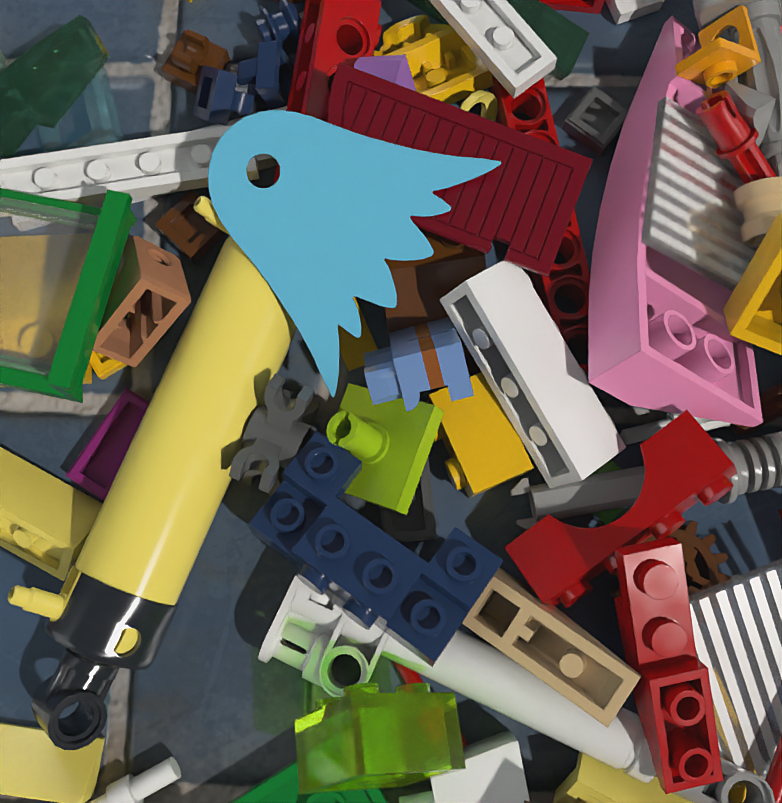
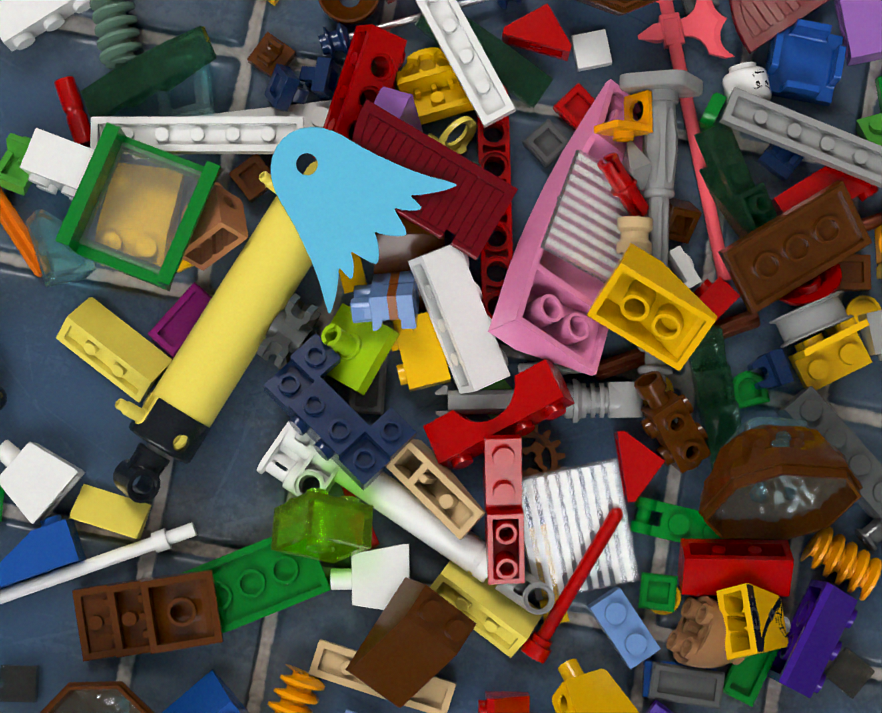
camera: 10 degrees right, 5 degrees up
(624, 67) = (574, 106): none -> red tile

